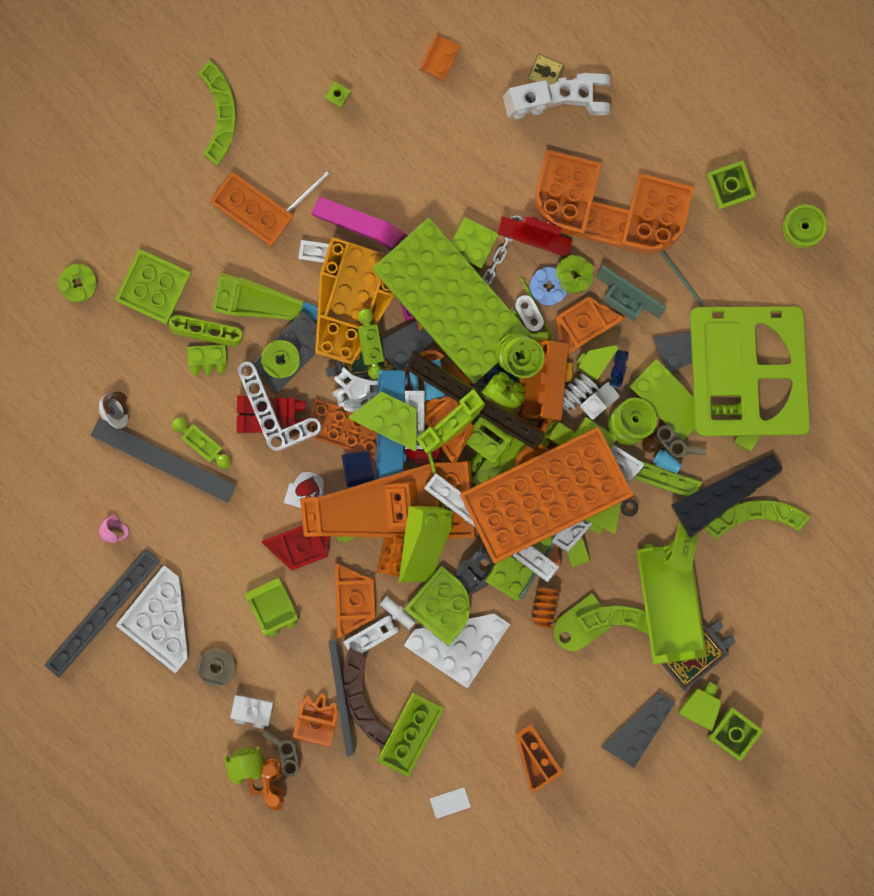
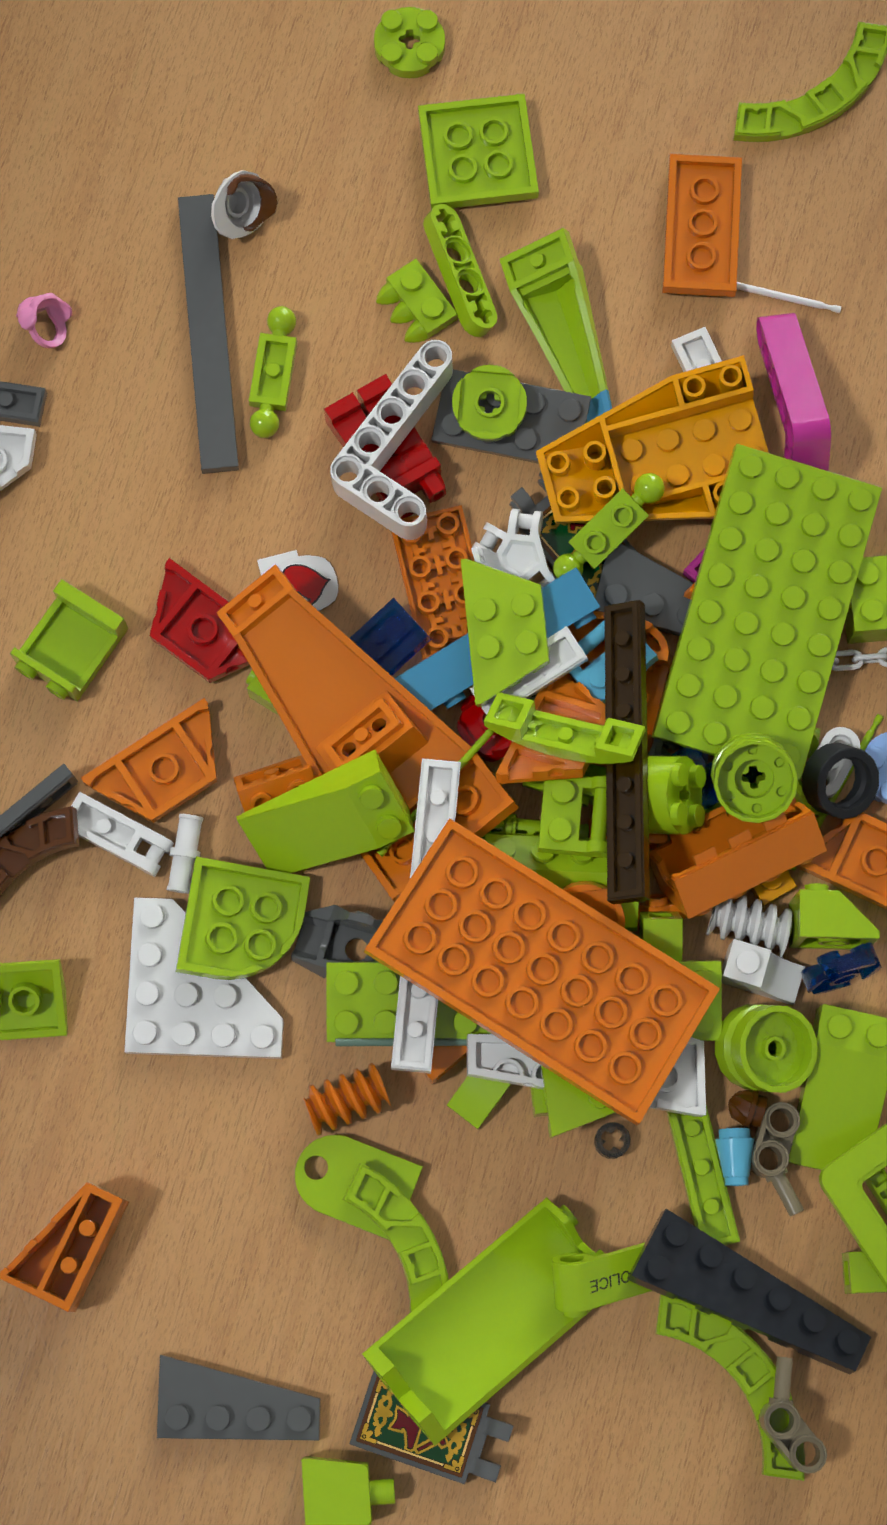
camera: 60 degrees right, 10 degrees down
(530, 321) = (863, 789): none -> black tyre
(790, 508) = (797, 1430): none -> dark tan beam

